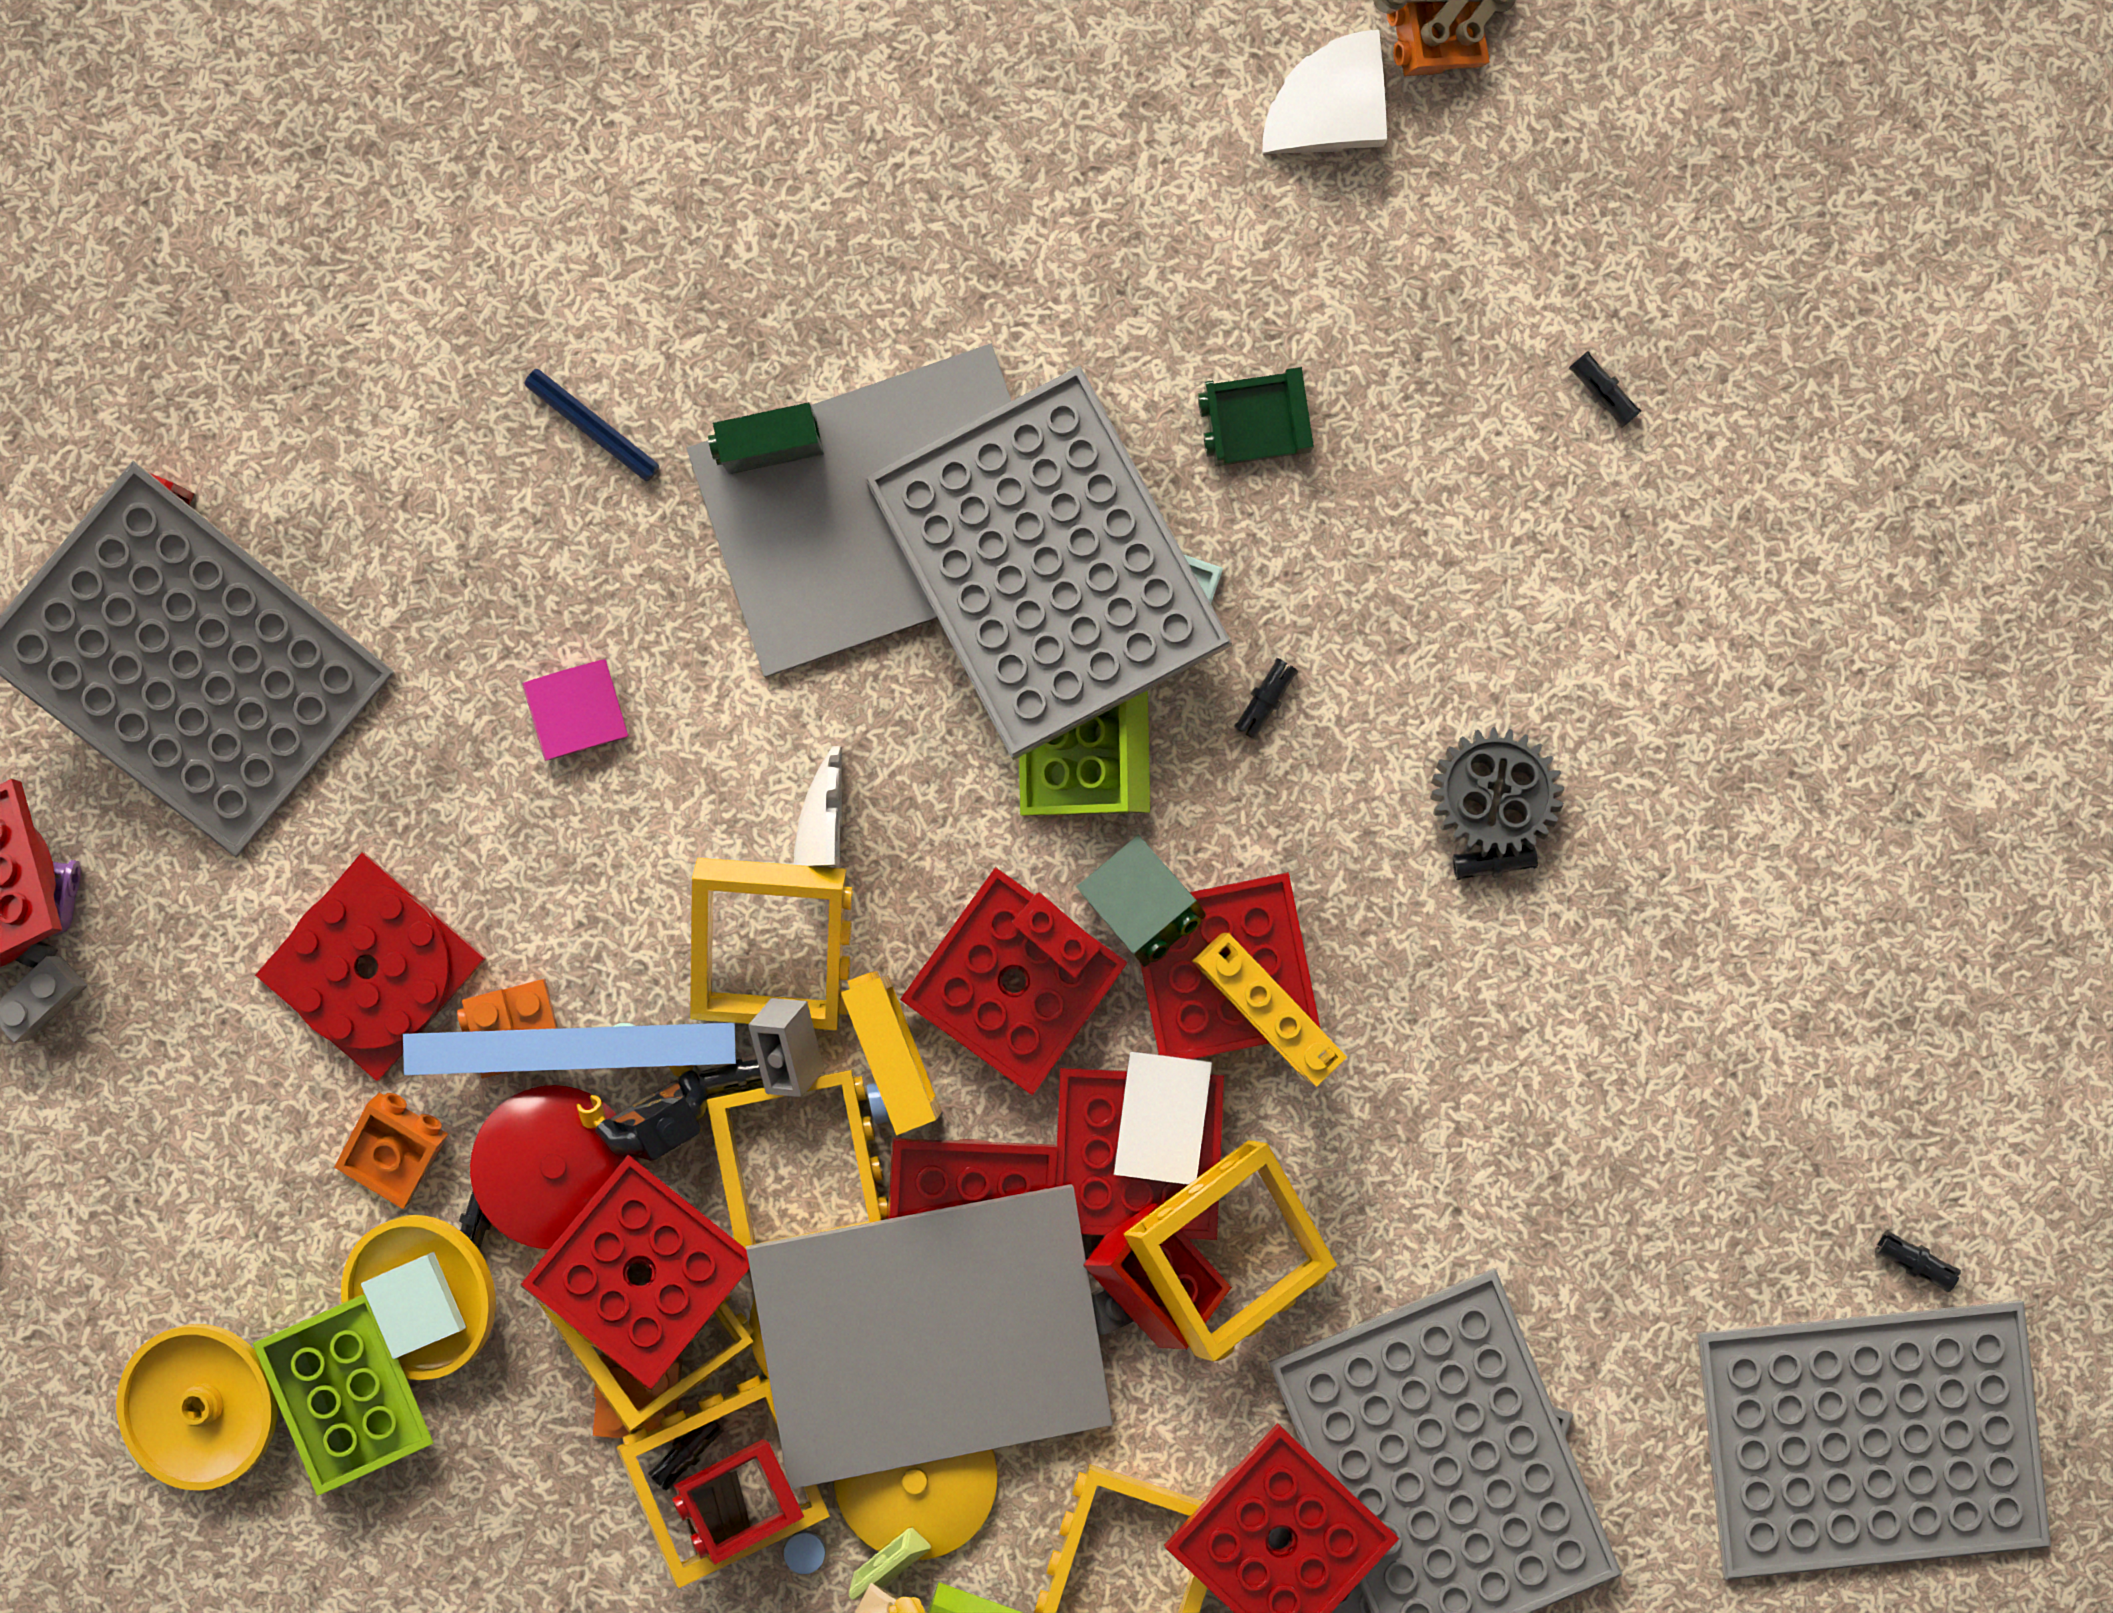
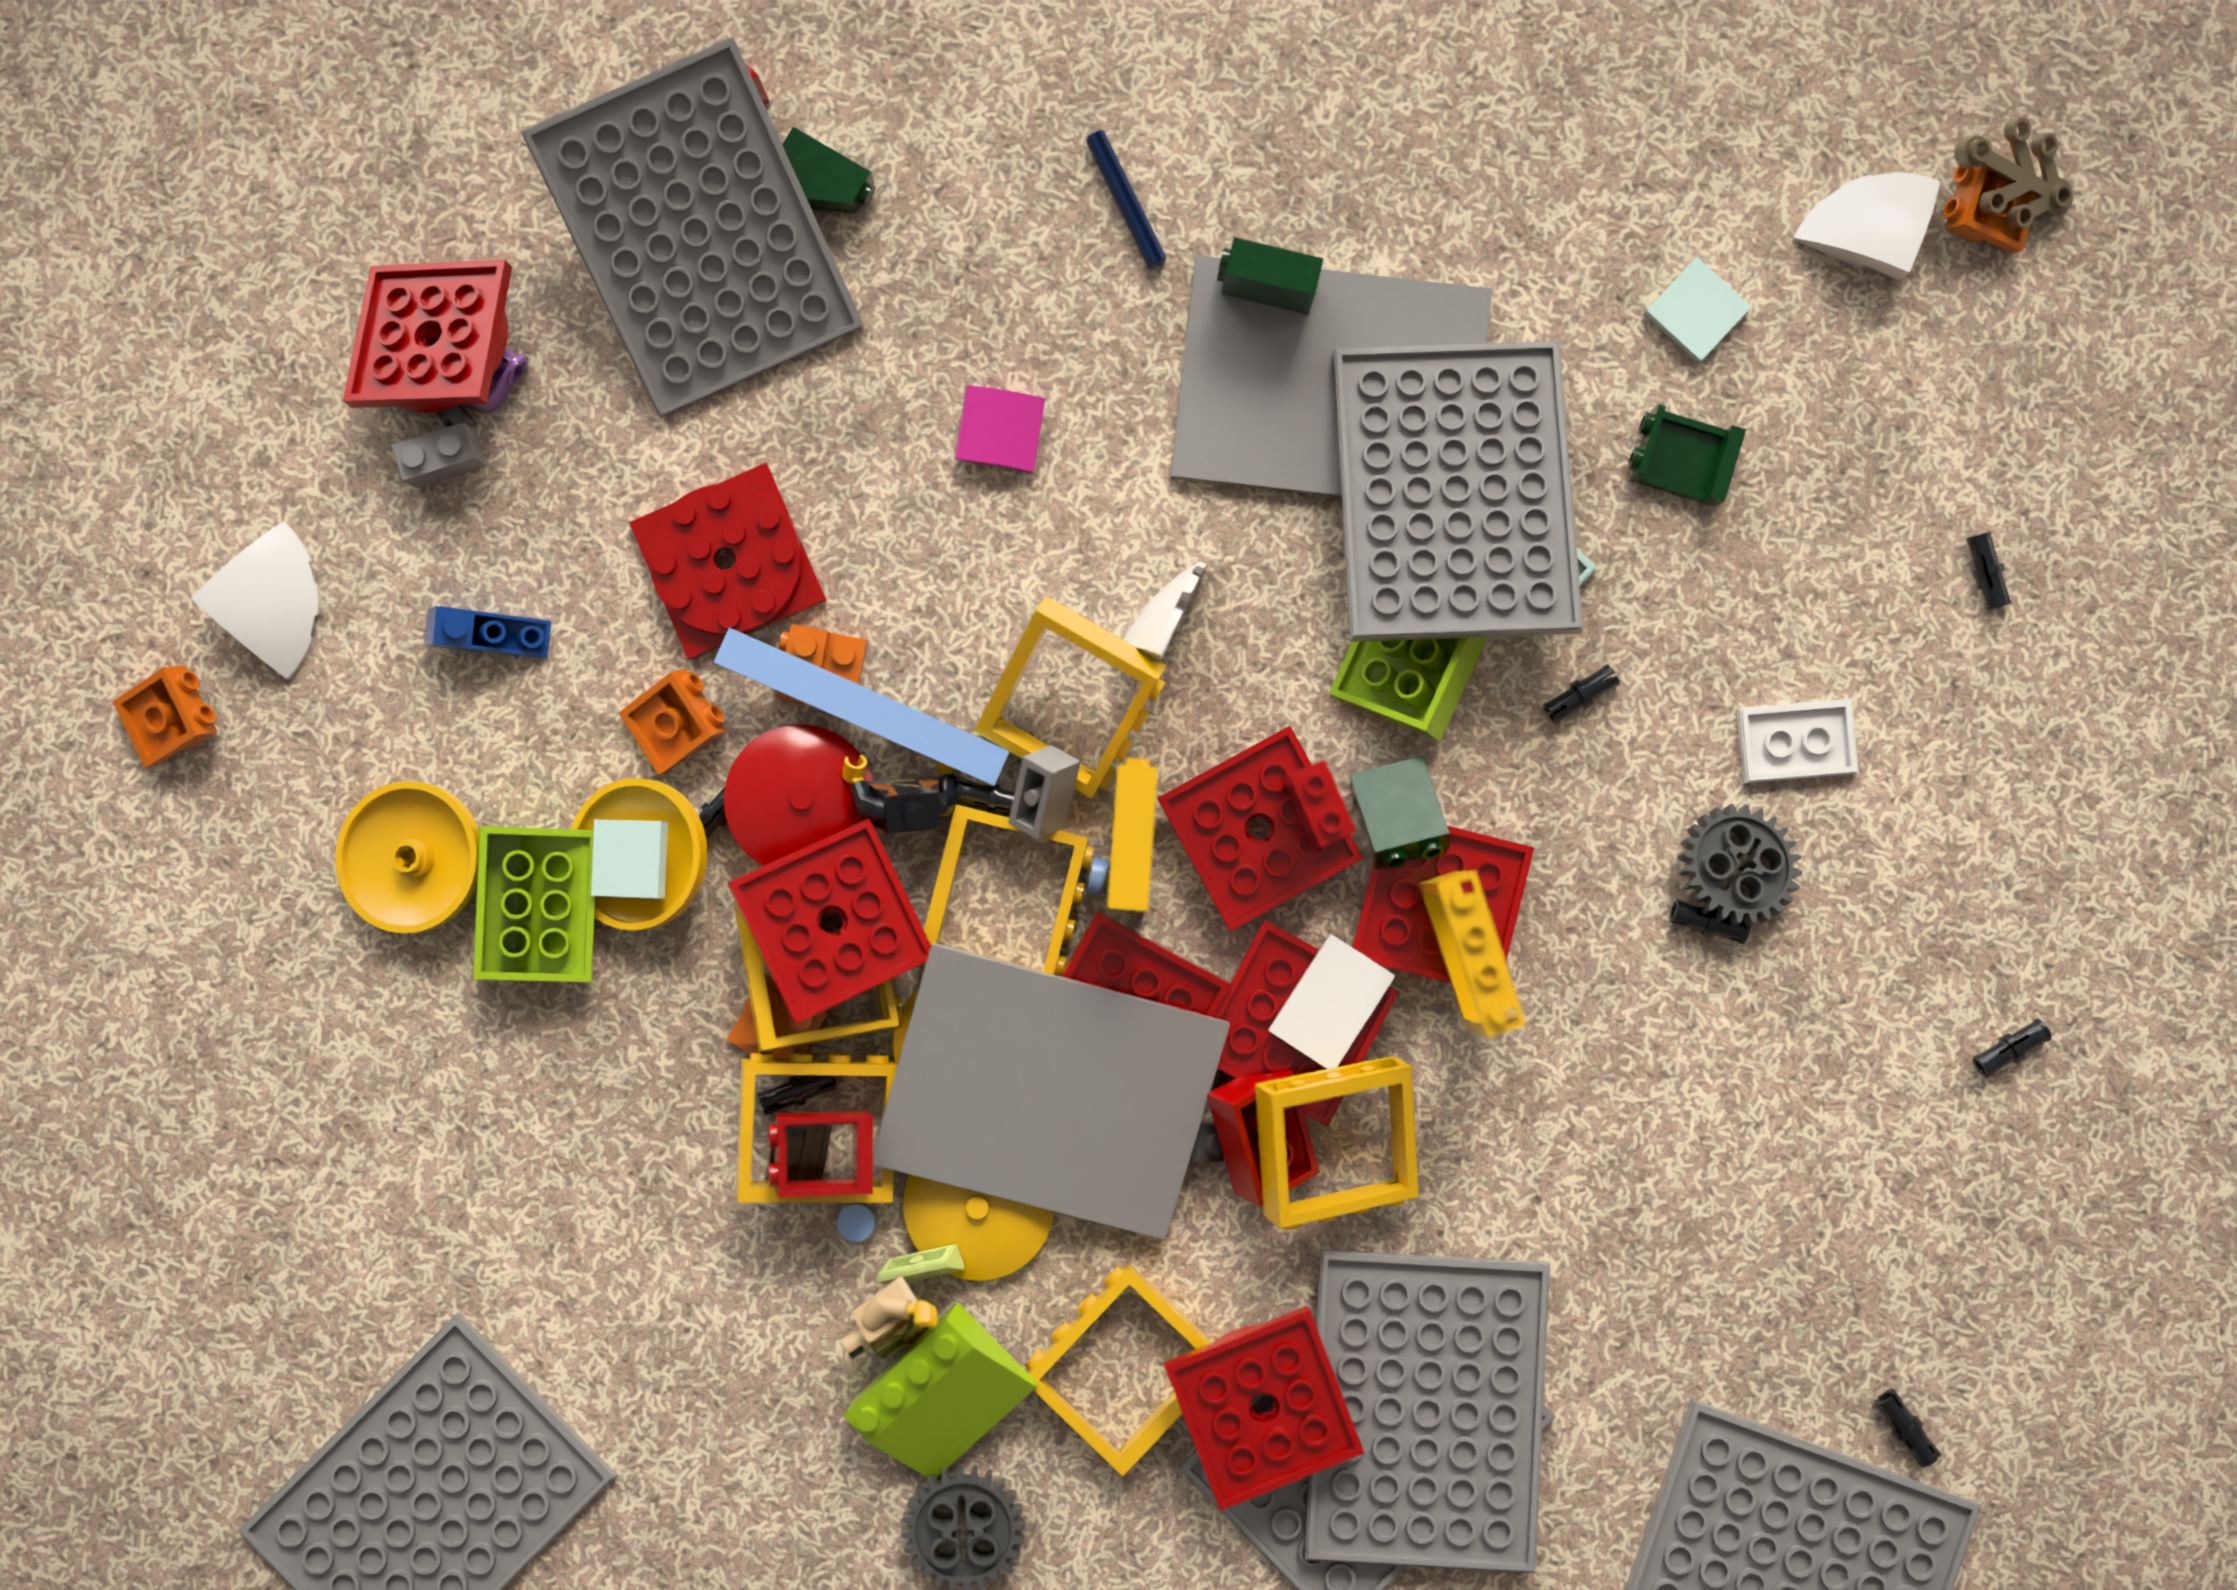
camera: 25 degrees right, 0 degrees up
(167, 1150) = (486, 632): none -> blue slope
(286, 544) = (826, 176): none -> dark green slope
(1201, 268) = (1697, 310): none -> light aqua tile
(1498, 643) = (1797, 741): none -> white tile
(1845, 844) = (2012, 1048): none -> black pin

